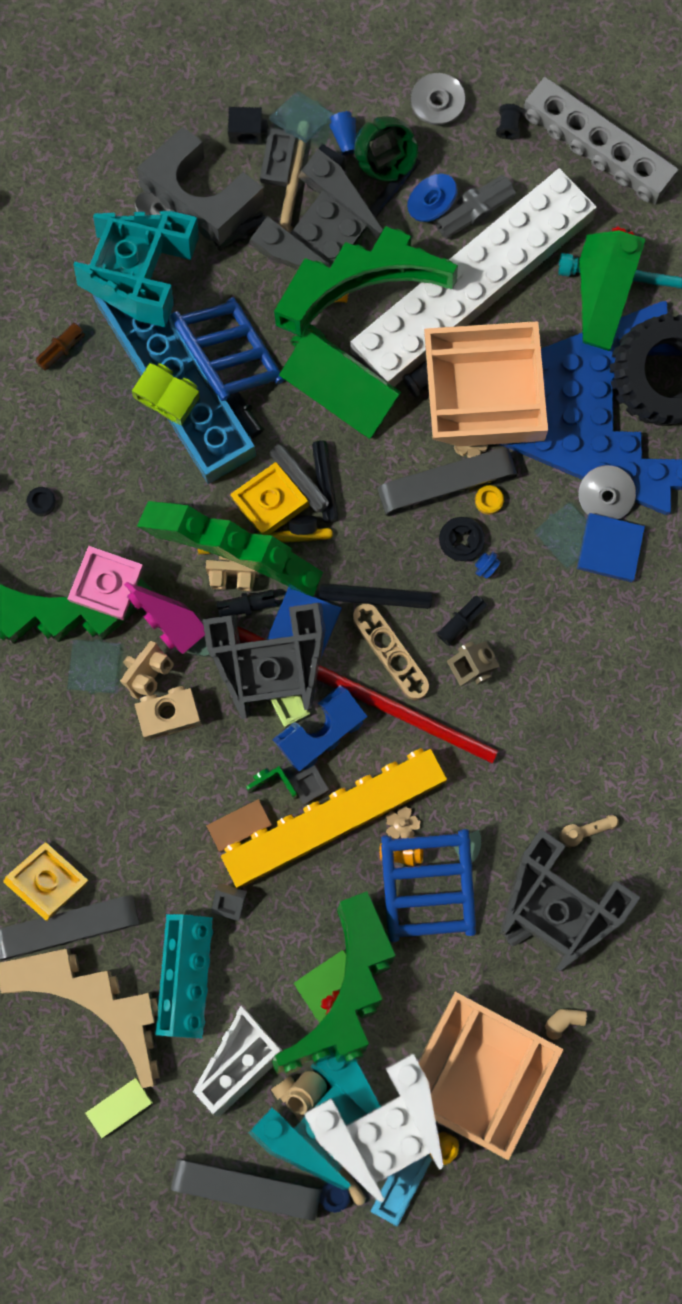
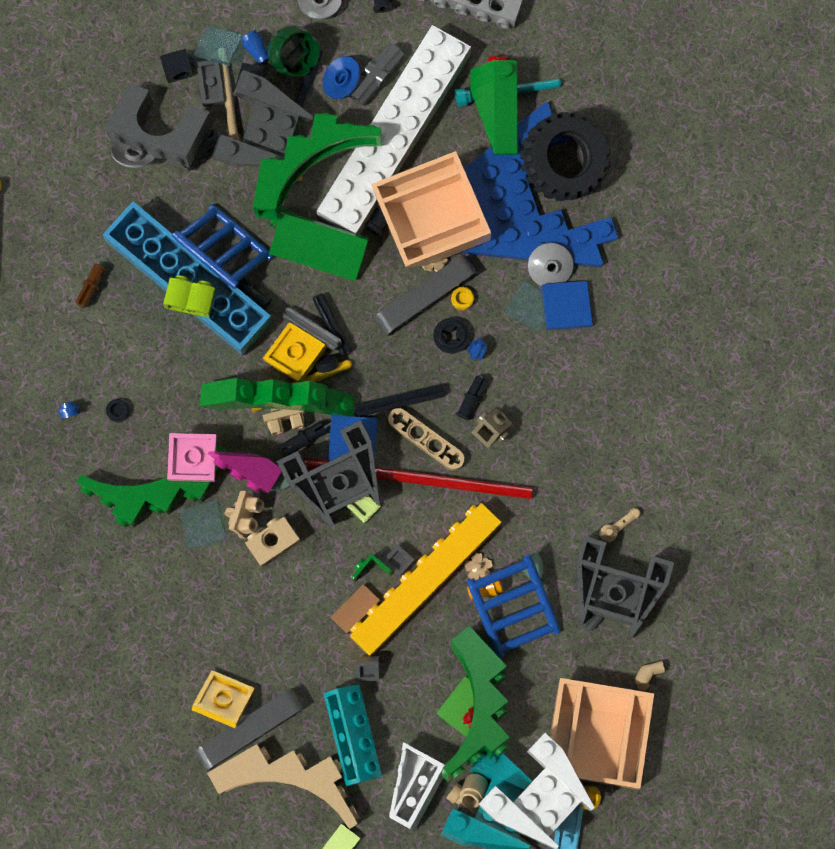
camera: 20 degrees left, 0 degrees up
(128, 256) = (124, 201): teal wedge -> none
(341, 717) = (405, 501): blue arch -> none

